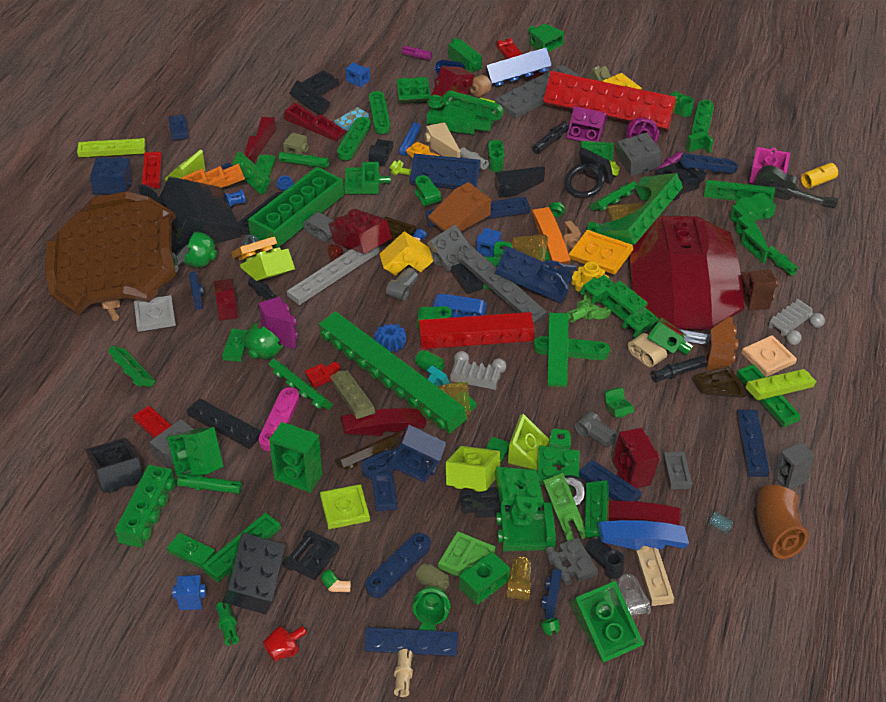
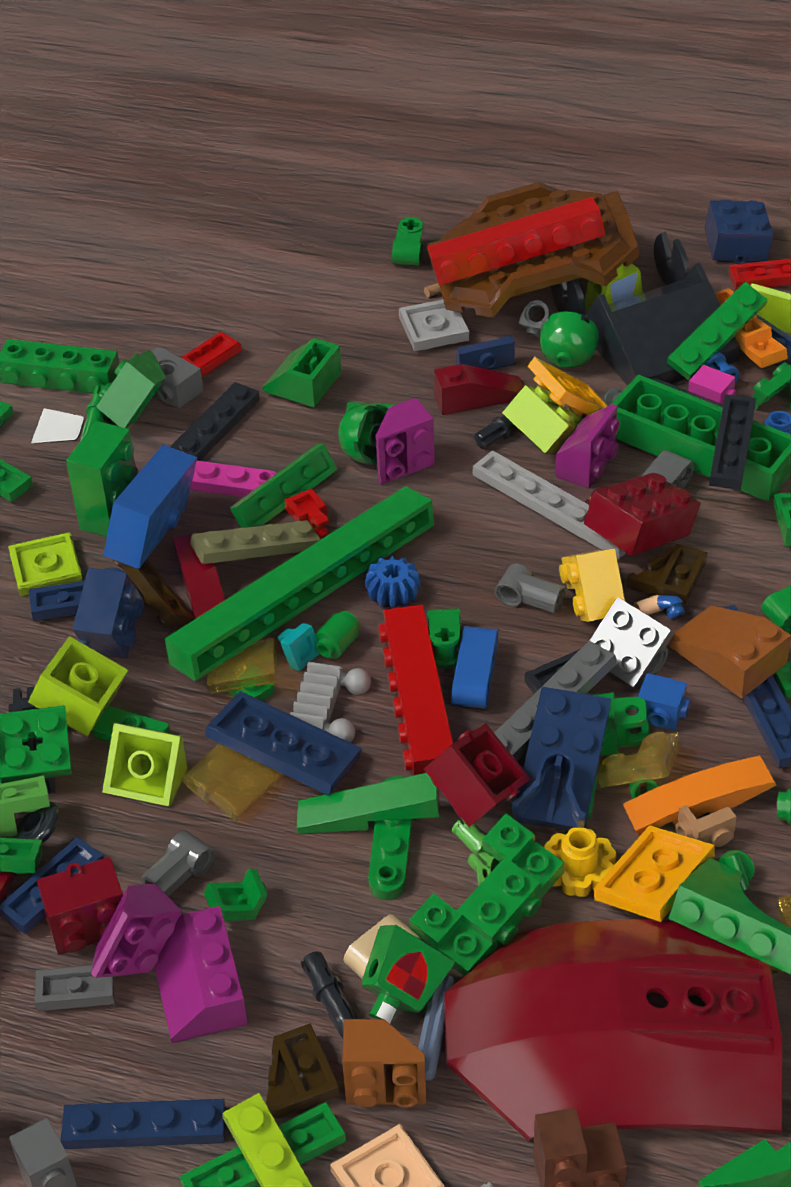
camera: 90 degrees right, 0 degrees up
(66, 321) = (408, 242): none -> green piece
(115, 465) = (133, 326): black slope -> none
(131, 366) = (319, 317): green plate -> none
(132, 243) = (516, 240): none -> red brick
(191, 371) = (306, 373): none -> green slope
(202, 510) = (57, 427): none -> white sticker
(217, 186) = (717, 331): none -> green plate
(251, 200) = (712, 384): none -> dark pink brick
(300, 245) = (589, 448): none -> magenta slope
(321, 185) = (732, 442): none -> black plate
(340, 431) = (150, 506): none -> blue brick
(515, 381) = (283, 742): none -> dark blue plate
(533, 406) = (230, 780): none -> clear yellow slope
(554, 297) = (477, 774): none -> dark red brick
(559, 453) = (120, 811): green plate -> none
(661, 430) = (135, 932): none -> magenta slope
(668, 417) = (199, 977): none -> magenta slope

